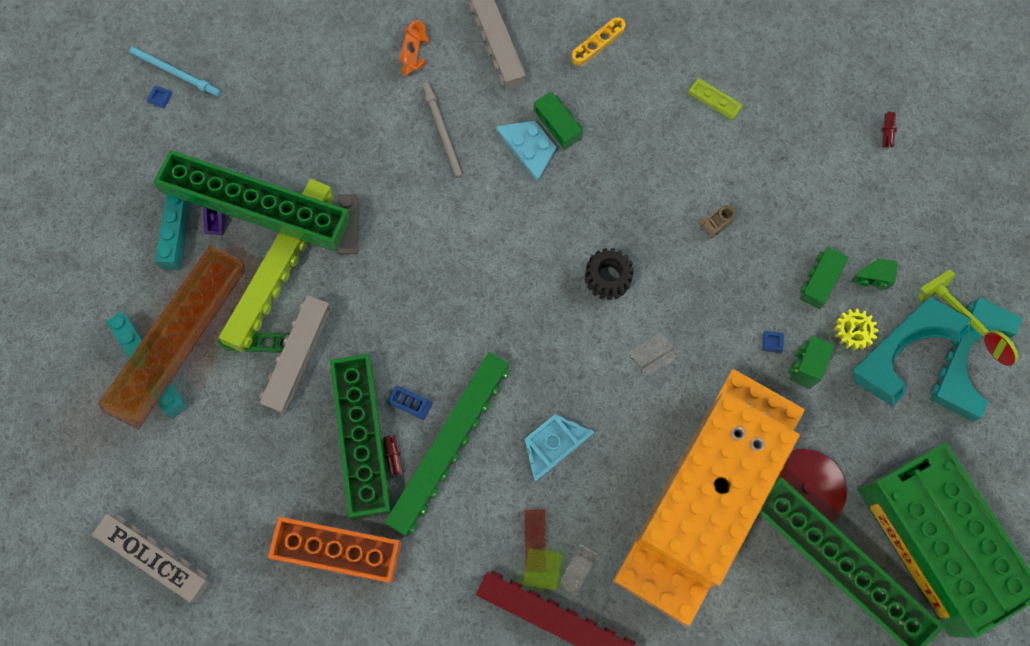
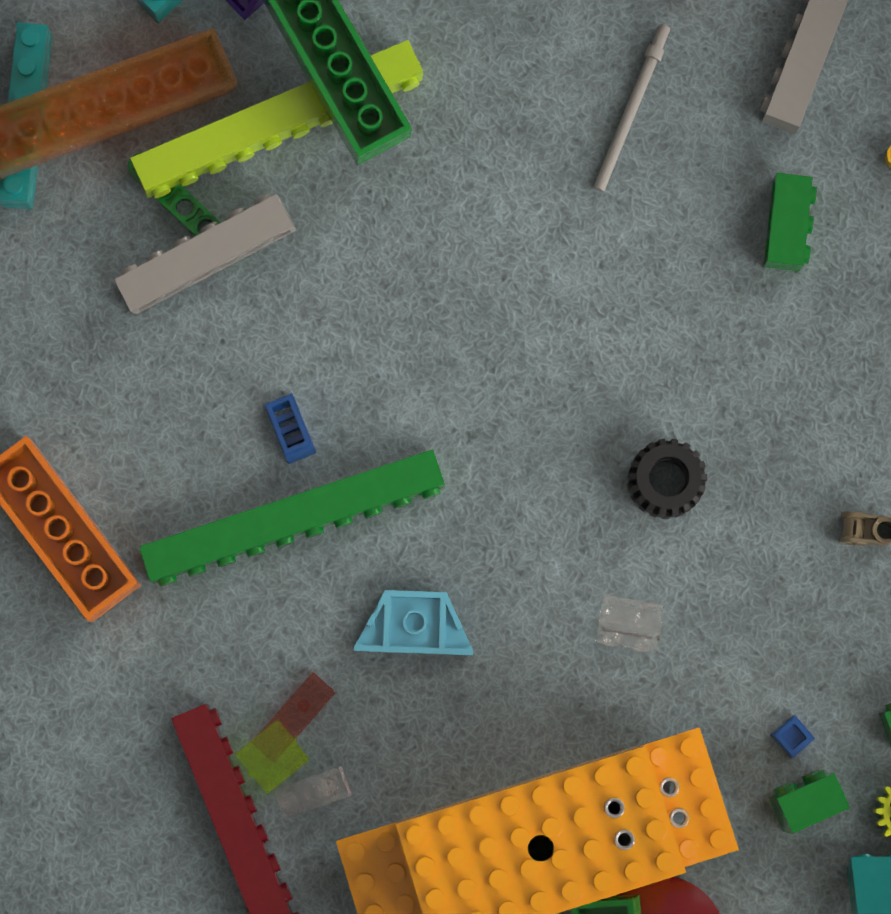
camera: 40 degrees right, 10 degrees up
(349, 241) = (424, 117): dark grey slope -> none
(360, 437) = (197, 419): green brick -> none
(392, 455) = (216, 474): dark red axle -> none
(529, 145) = (723, 224): medium azure wing -> none

